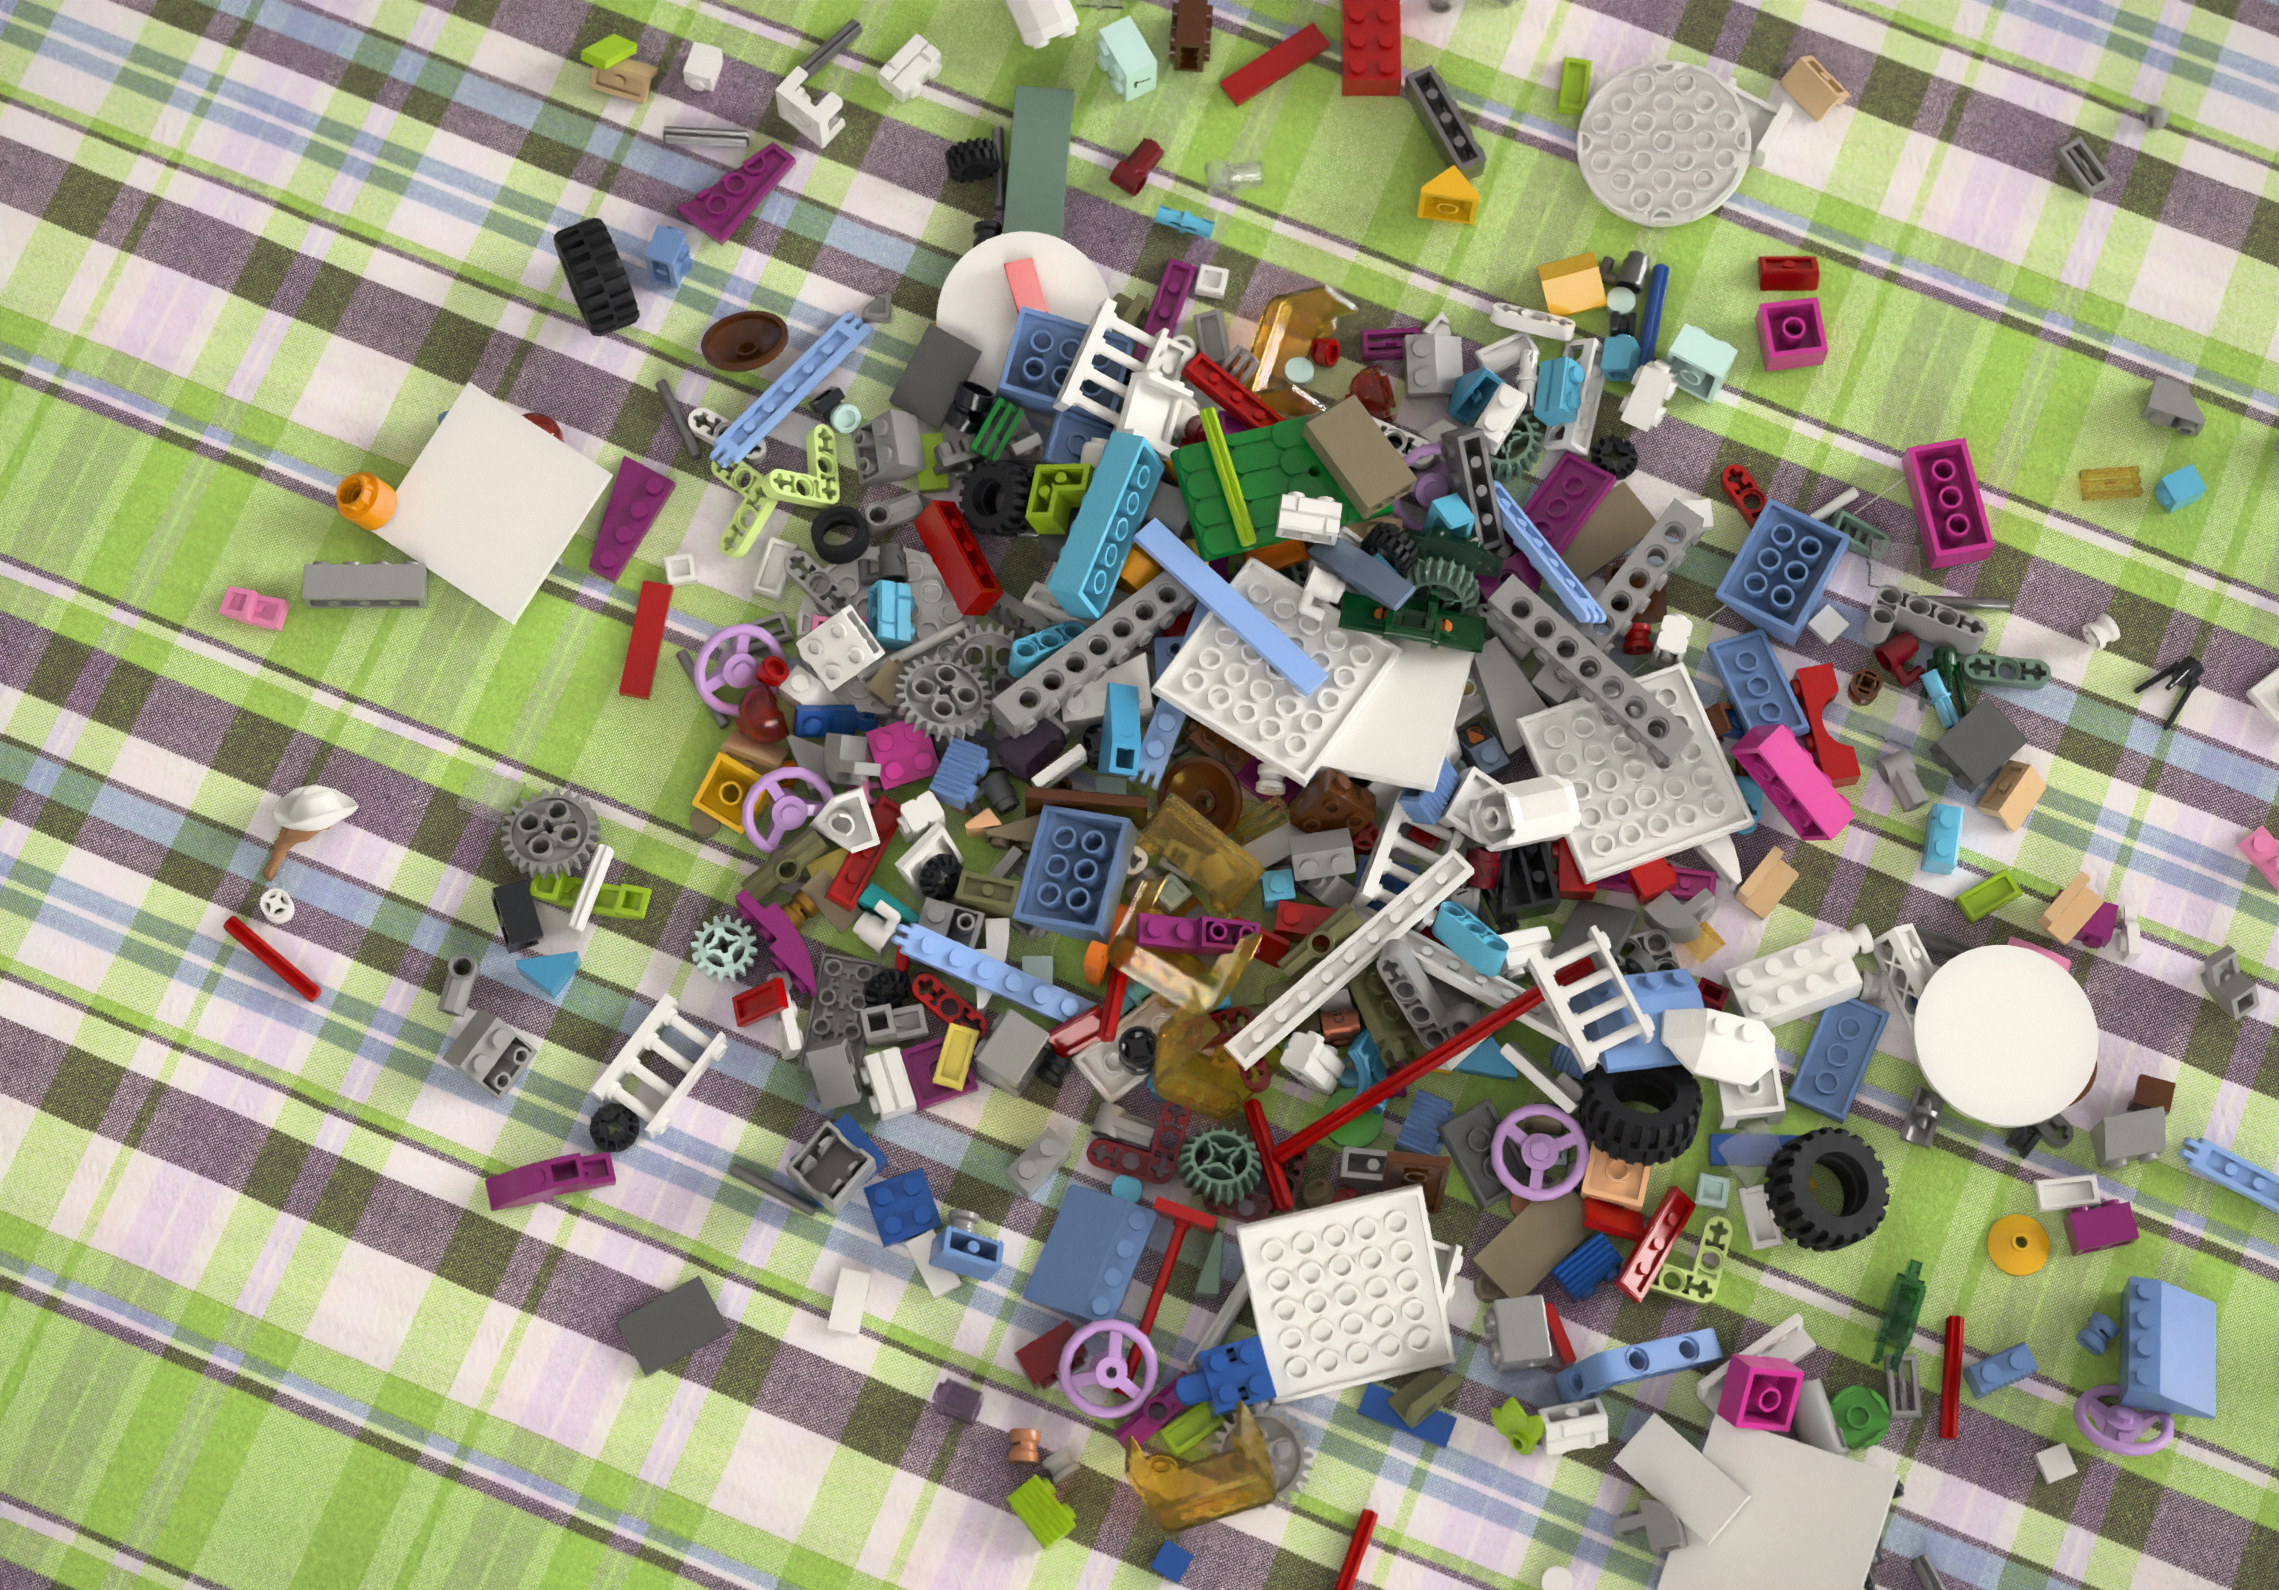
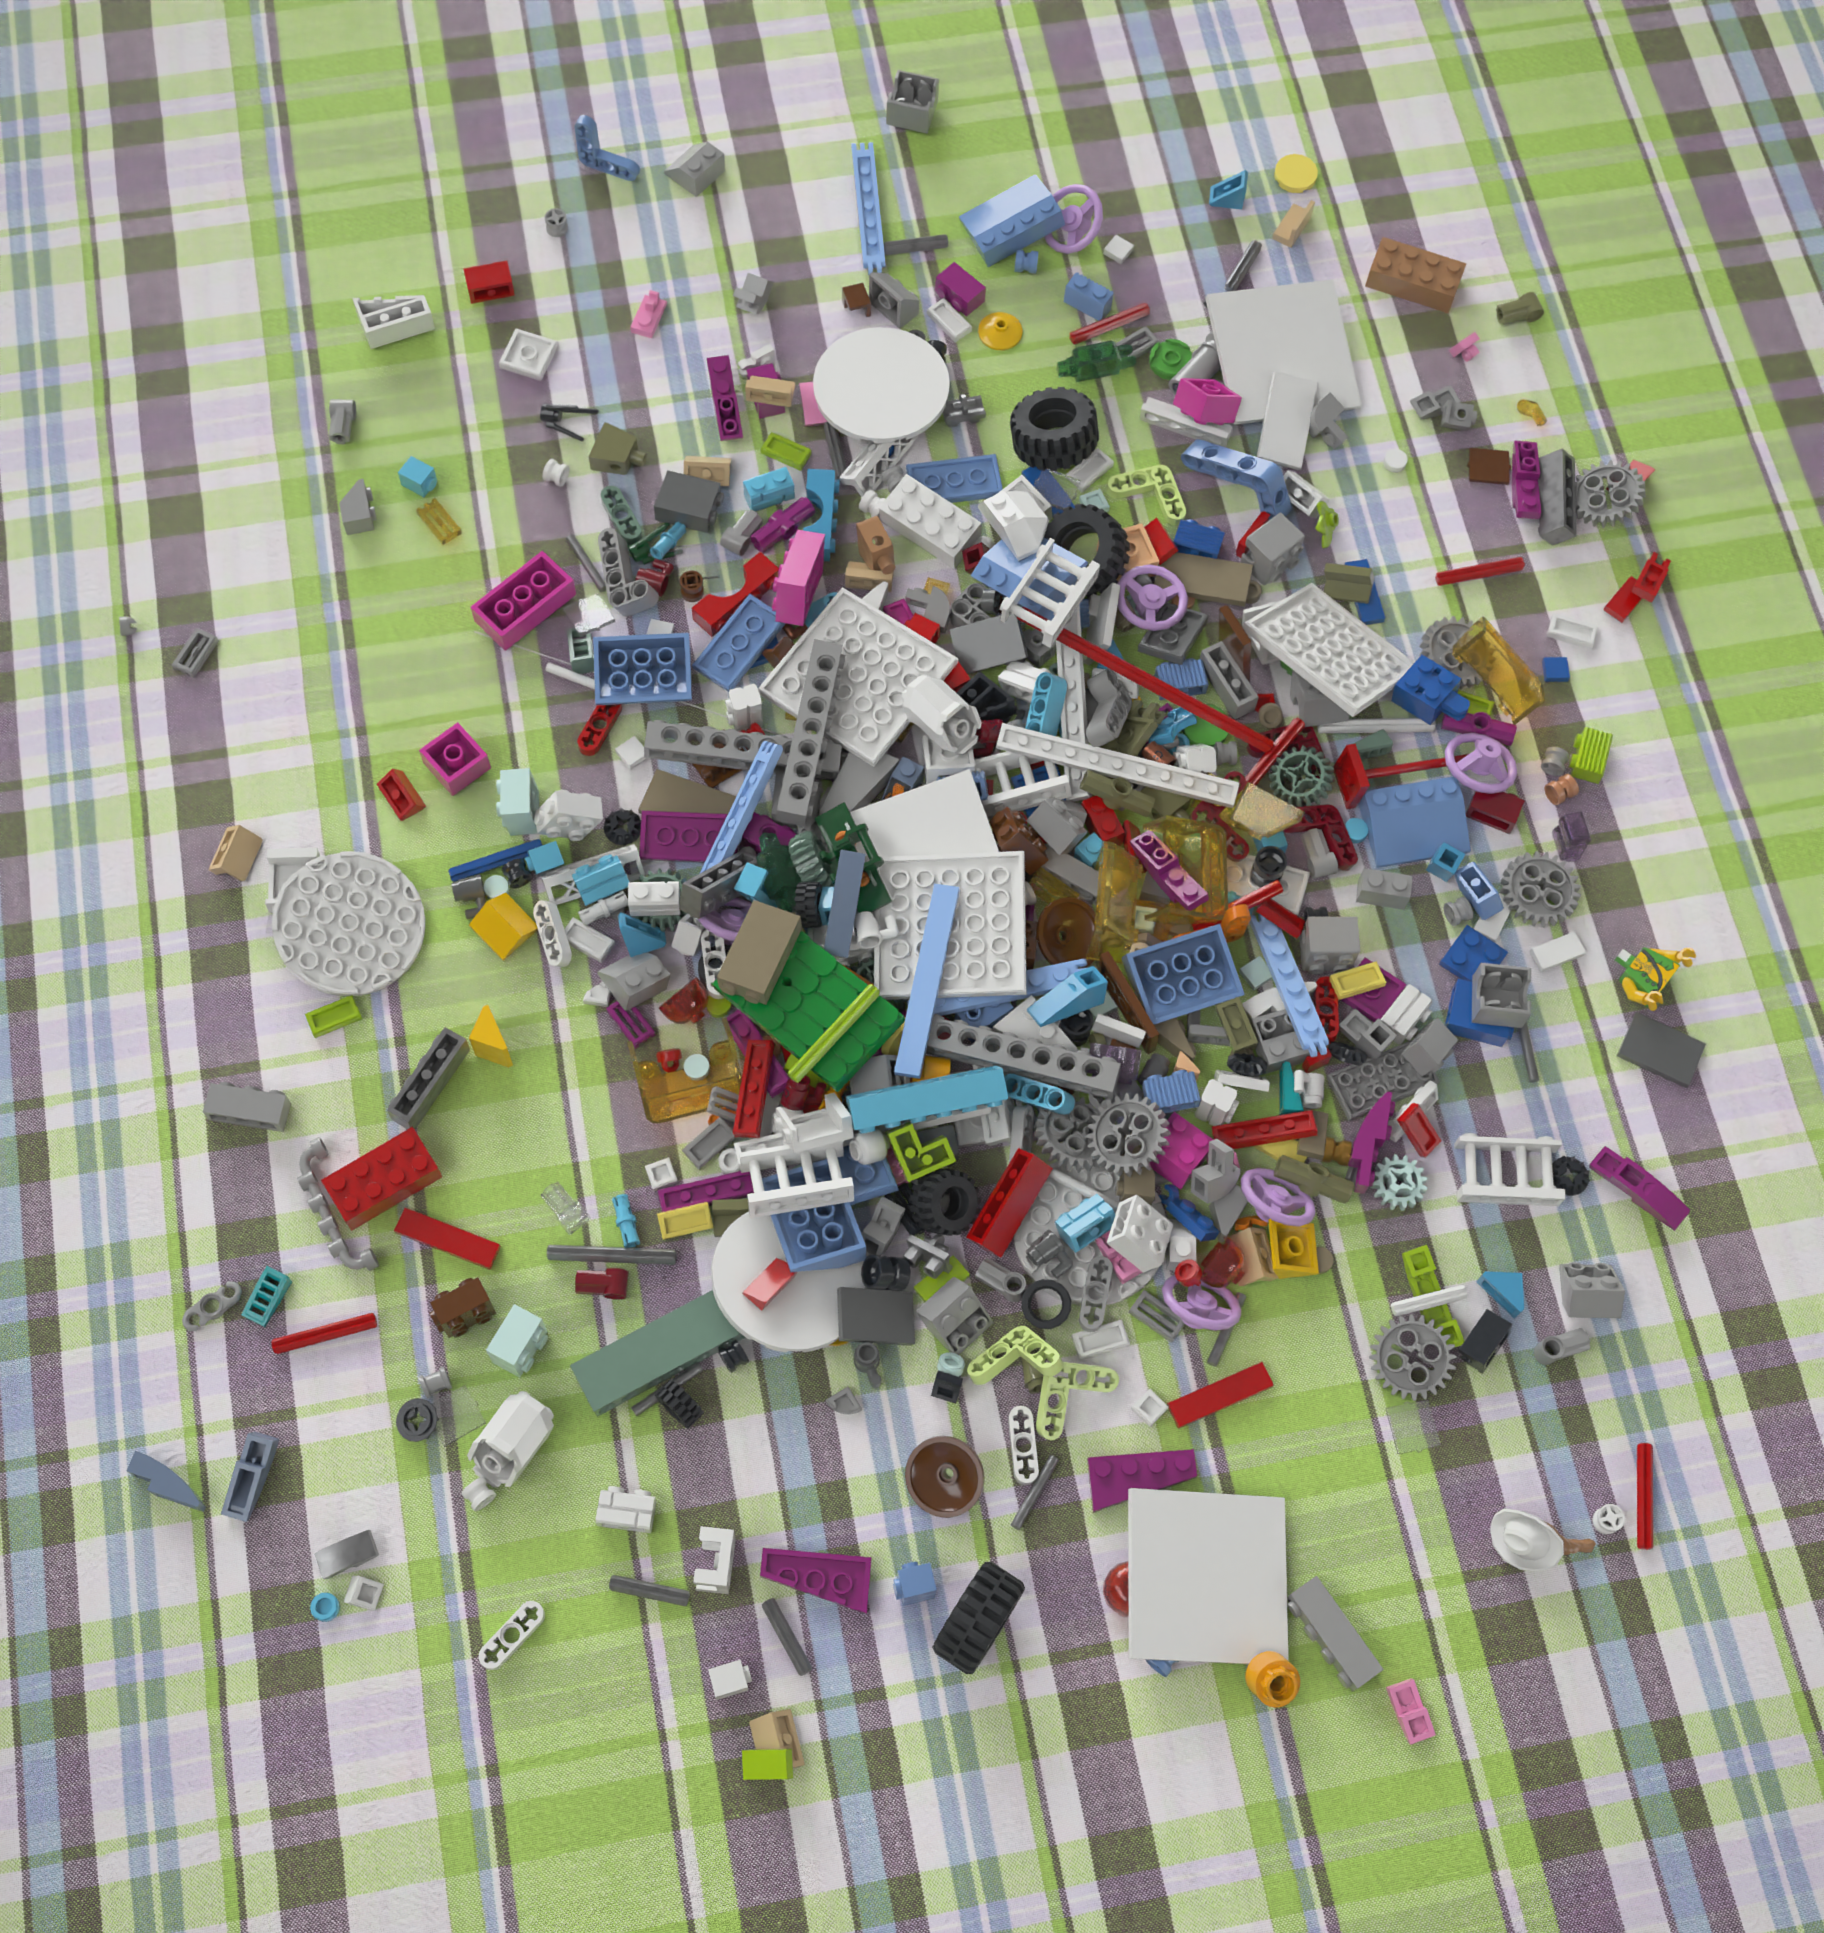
camera: 125 degrees left, 5 degrees down
(756, 1370) = (1650, 972): none -> torso
(789, 389) = (959, 1417): light blue hinge -> none
(848, 821) = (1258, 1147): white slope -> none
(900, 349) = (867, 1360): none -> dark grey piece
(947, 1352) = (1542, 870): none -> light grey gear
(1009, 408) = (893, 1232): green tile -> none
(1023, 1246) = (1445, 862): none -> dark azure brick
(1149, 272) = (685, 1220): none -> light yellow tile
(1160, 193) = (611, 1254): none -> flat silver axle
(1304, 1110) = (1226, 753): none -> light grey wheel
(1308, 518) = (831, 956): white brick -> none
(1655, 1244) = (1157, 508): red tile -> none
(1788, 897) = (876, 556): none -> medium nougat torso
(1888, 829) = (782, 524): none -> magenta piece
(1905, 897) = (820, 491): none -> dark azure arch
(2094, 710) = (615, 451): none -> olive torso
(2105, 870) = (724, 398): none -> magenta slope
(2200, 1223) = (916, 244): none -> flat silver axle

